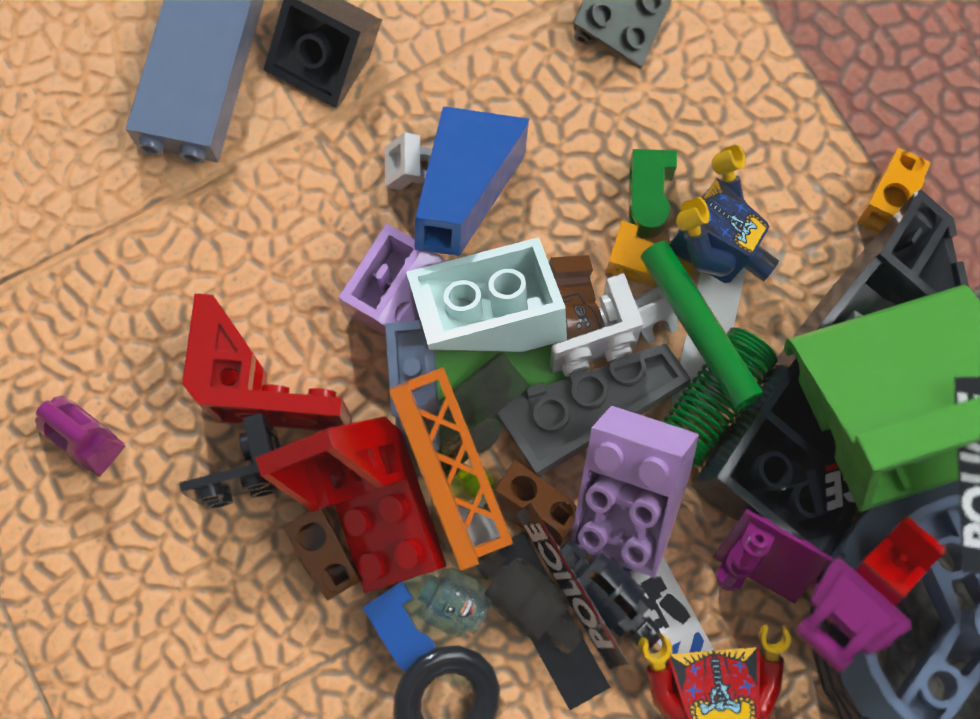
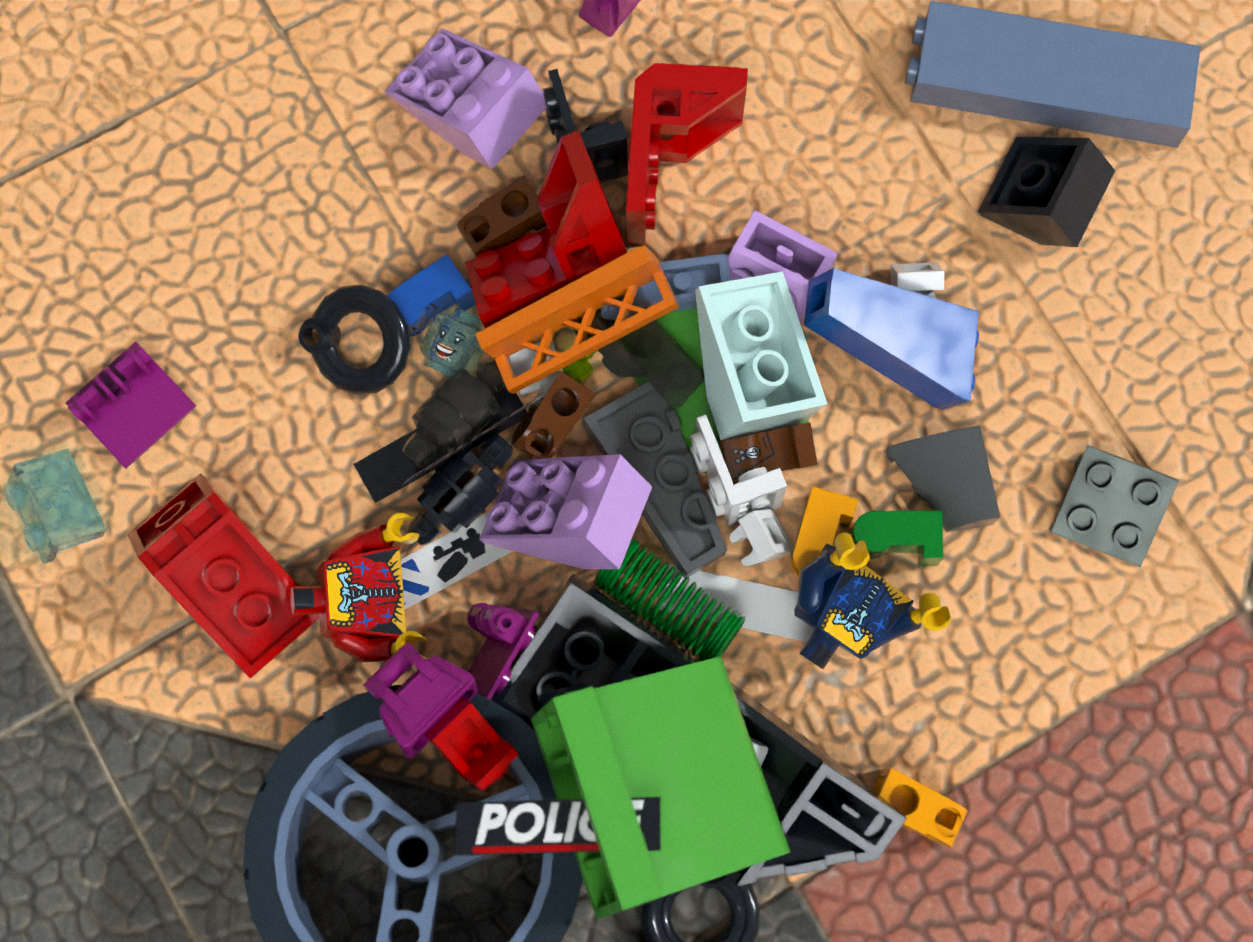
camera: 90 degrees right, 0 degrees up
(182, 589) = (469, 96): none -> lavender slope
(593, 143) = (951, 476): none -> dark grey slope
(701, 325) = (738, 573): green piece -> none

